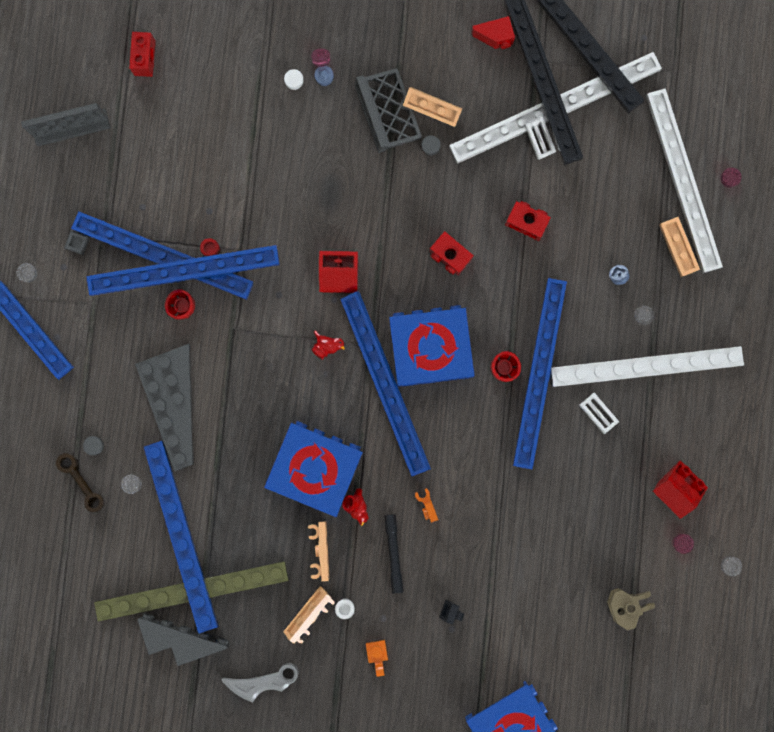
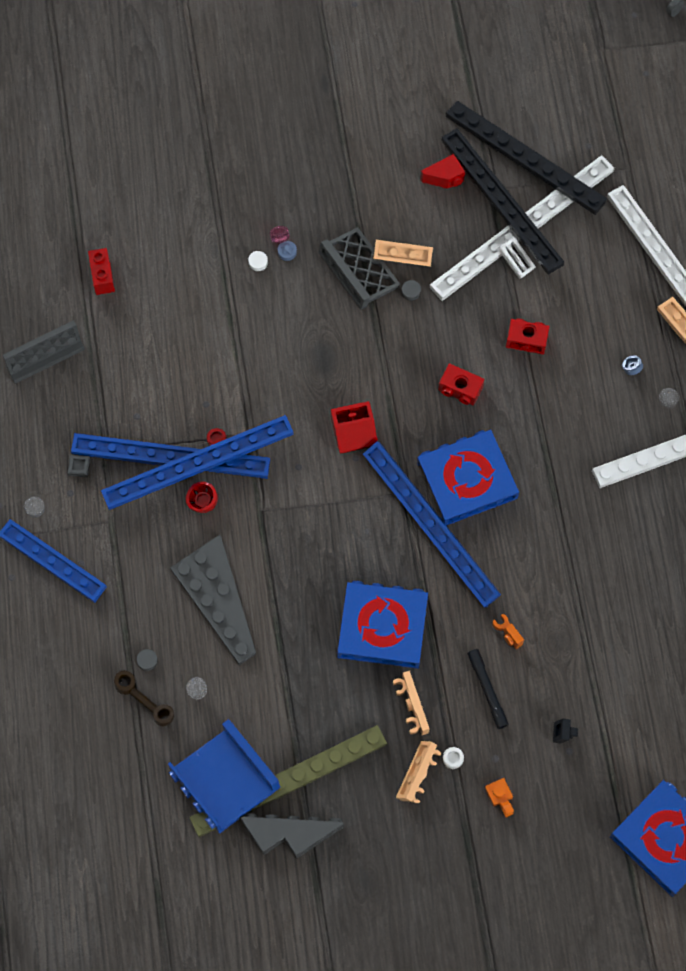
camera: 20 degrees left, 15 degrees down
(131, 577) = (225, 778): none -> blue panel
(181, 537) = (264, 726): blue plate -> none
(251, 688) = (377, 864): light grey piece -> none
(326, 345) = (361, 502): red animal -> none
(356, 506) = (436, 650): red animal -> none
(504, 366) = (545, 480): red helmet -> none
(539, 373) = (583, 478): blue plate -> none
(593, 418) = (649, 507): white tile -> none

